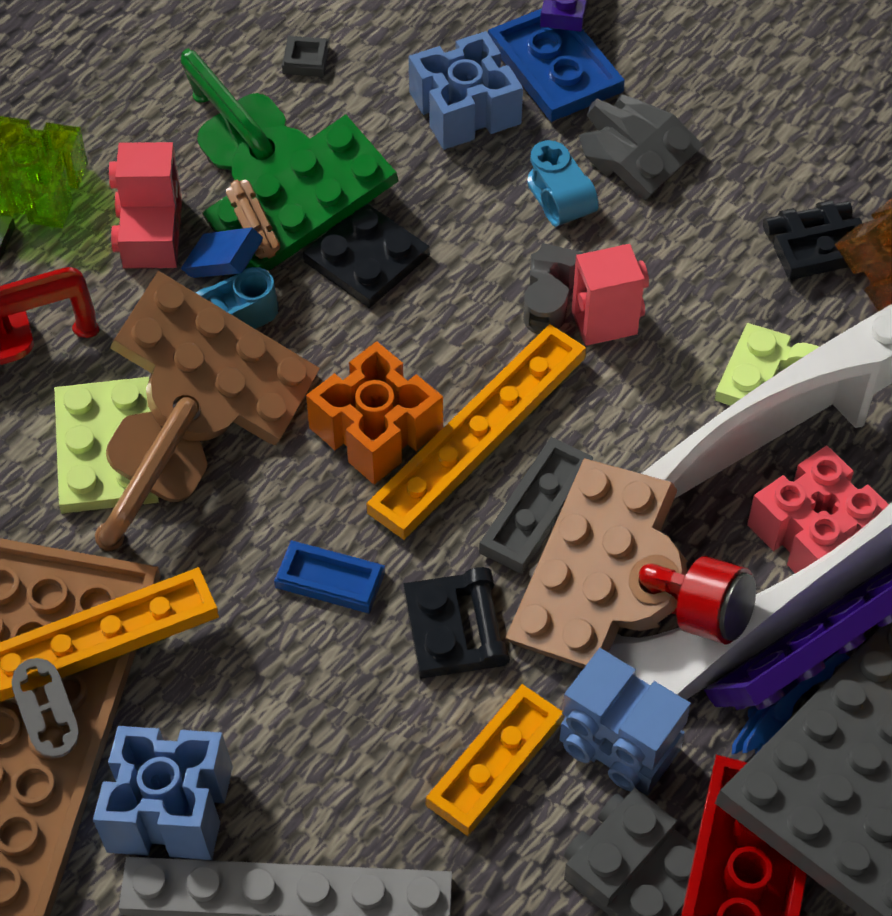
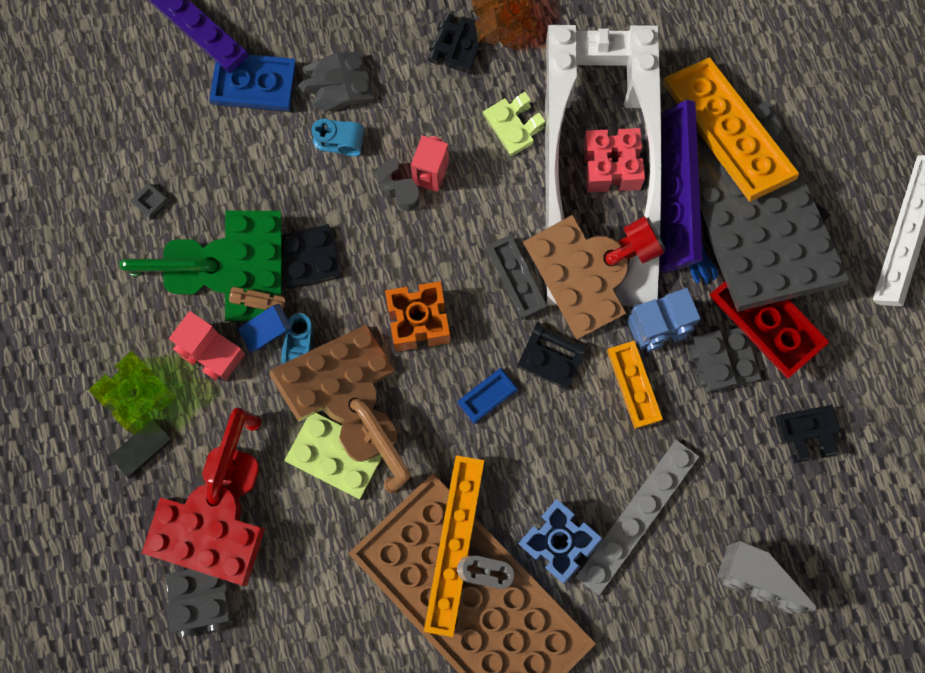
camera: 55 degrees left, 20 degrees up
(465, 90) = (233, 148): medium blue brick -> none
(475, 432) = (455, 275): light orange plate -> none

